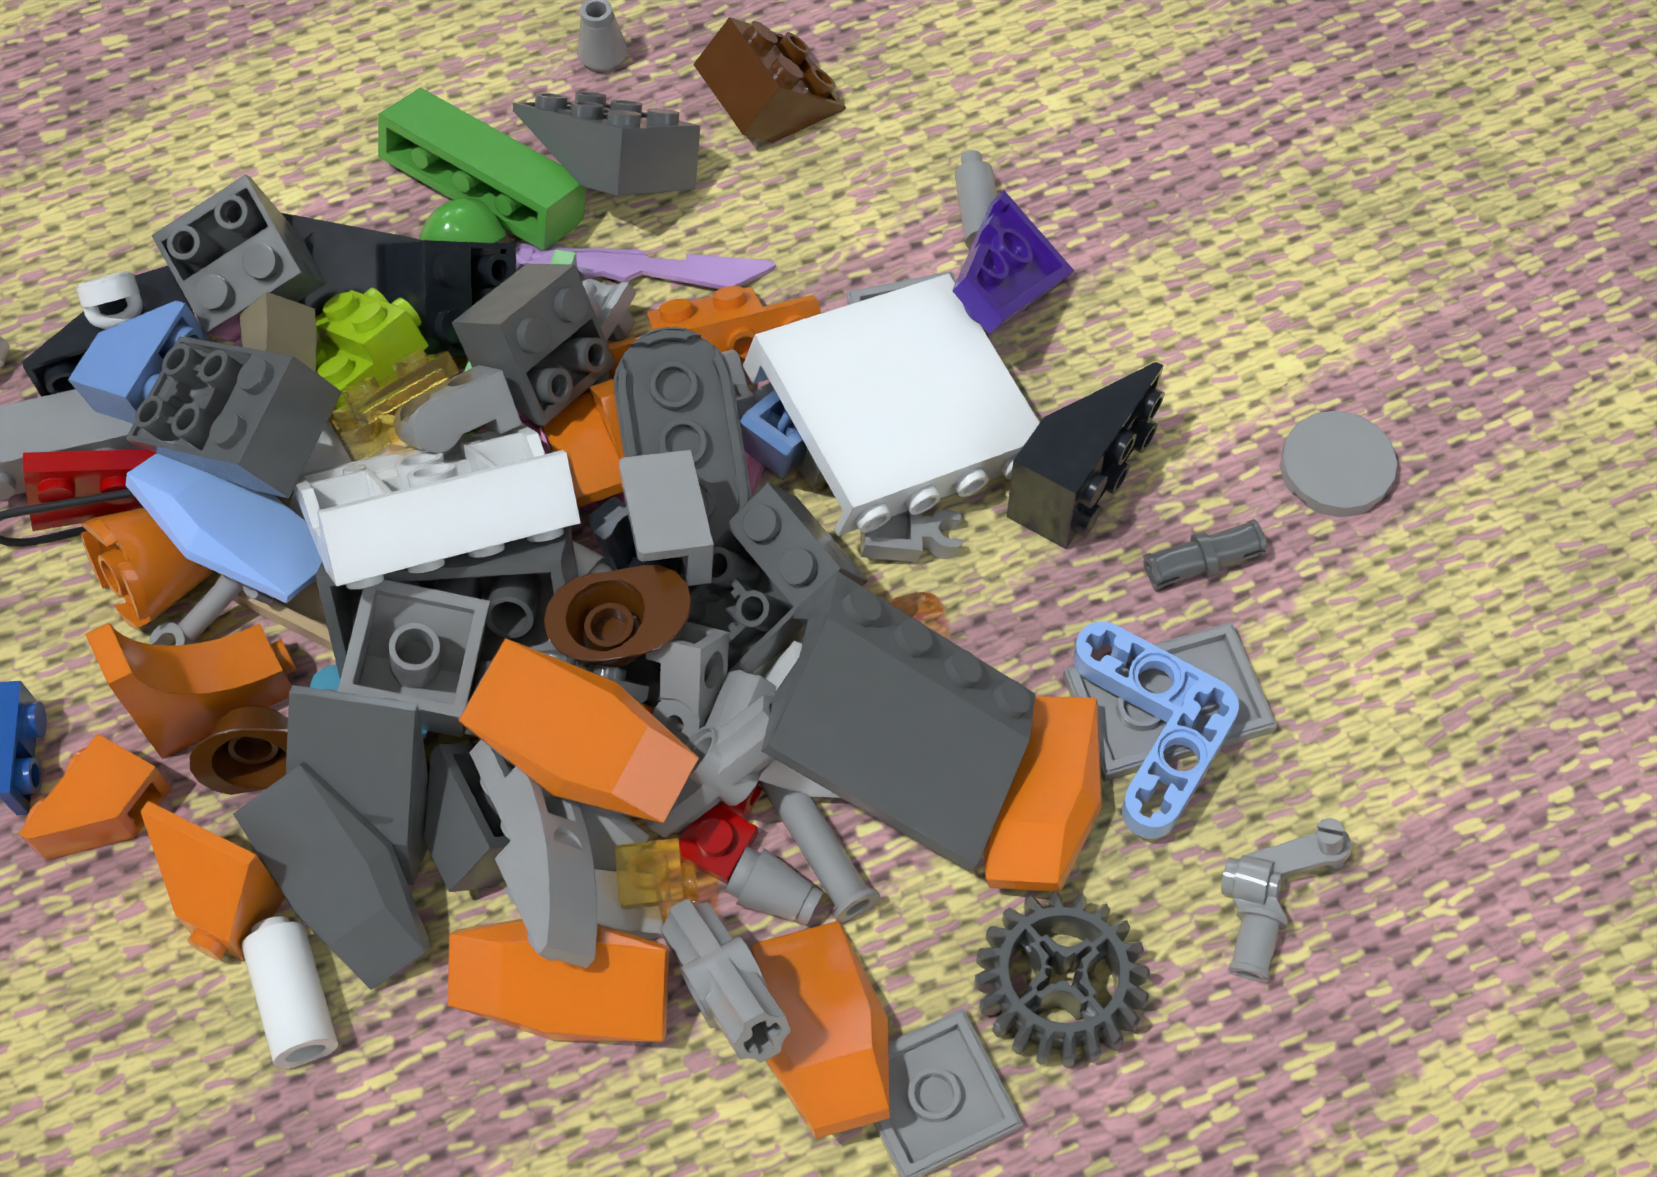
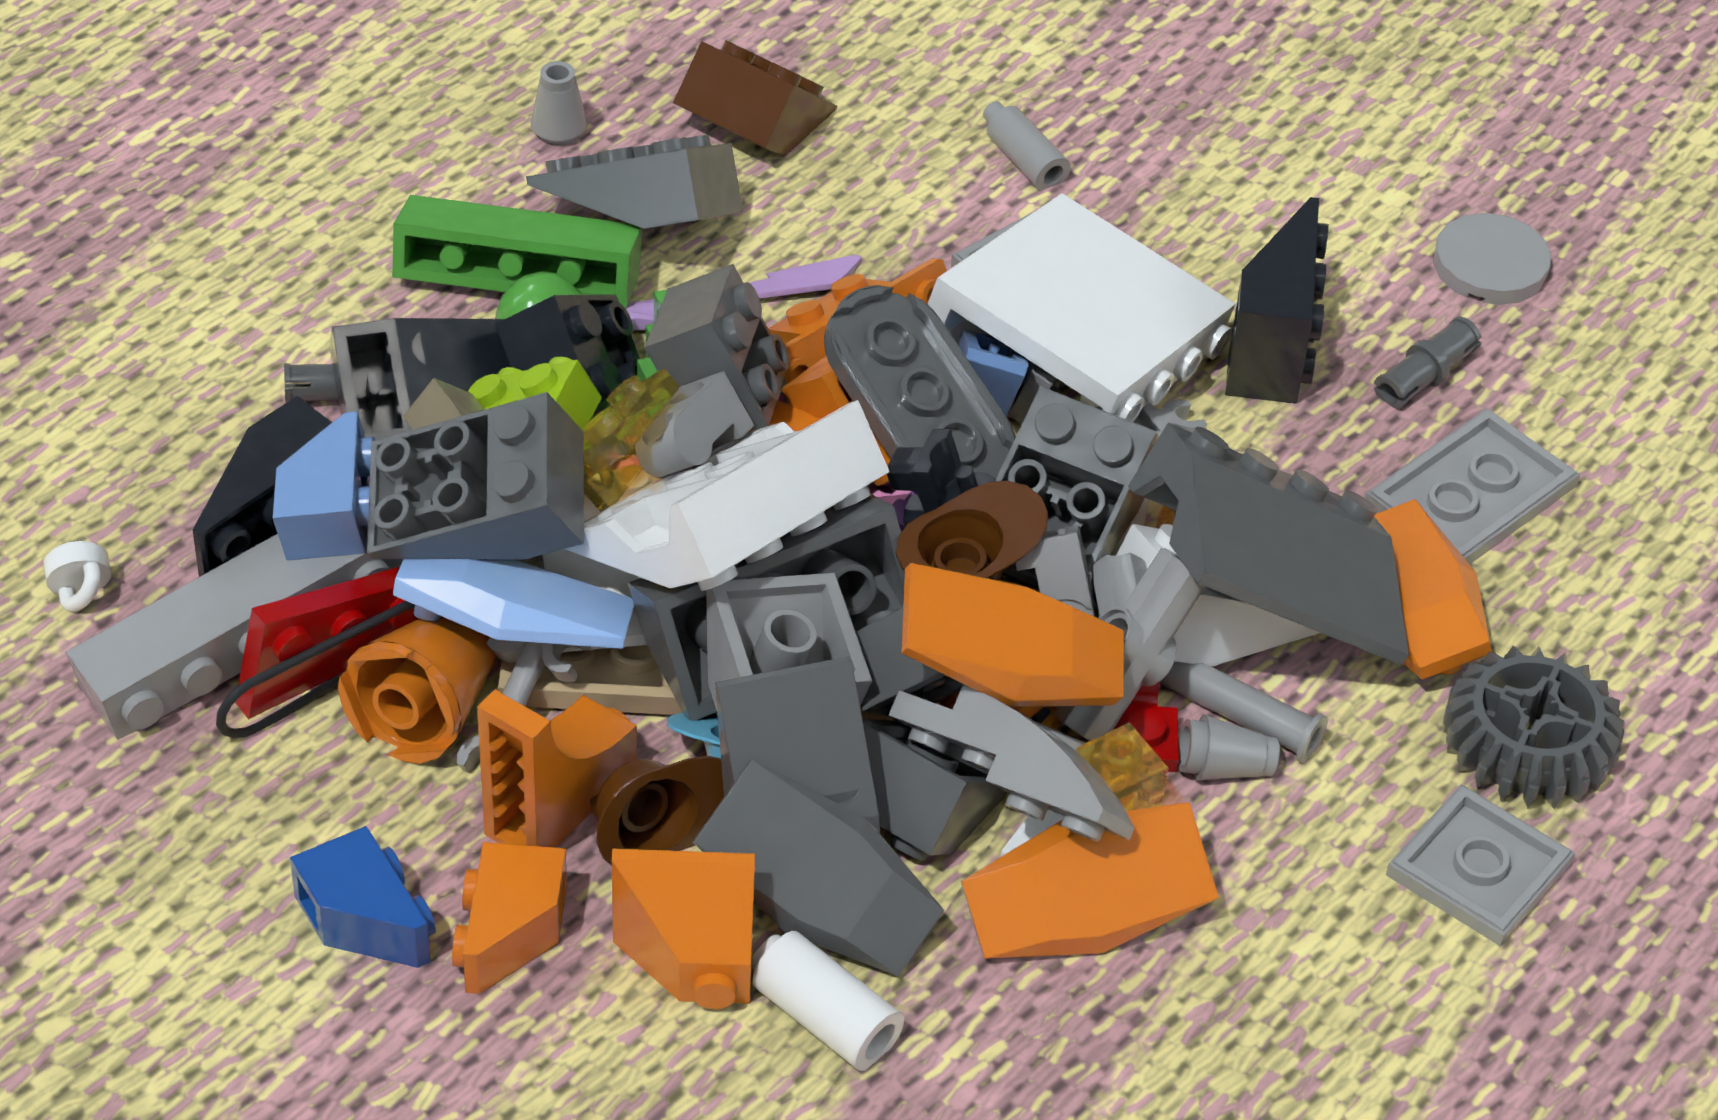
camera: 30 degrees left, 15 degrees down
(109, 289) = (256, 429): white tile -> none
(233, 253) = (367, 360): dark grey slope -> none
(668, 512) = (974, 431): light grey panel -> none
(725, 981) = (1259, 812): light grey piece -> none
(839, 1034) = (1351, 841): orange piece -> none
(1007, 266) = (1102, 177): dark purple wing -> none
(1176, 707) = (1491, 482): light blue beam -> none
(1256, 885) = (1648, 600): light grey pin -> none

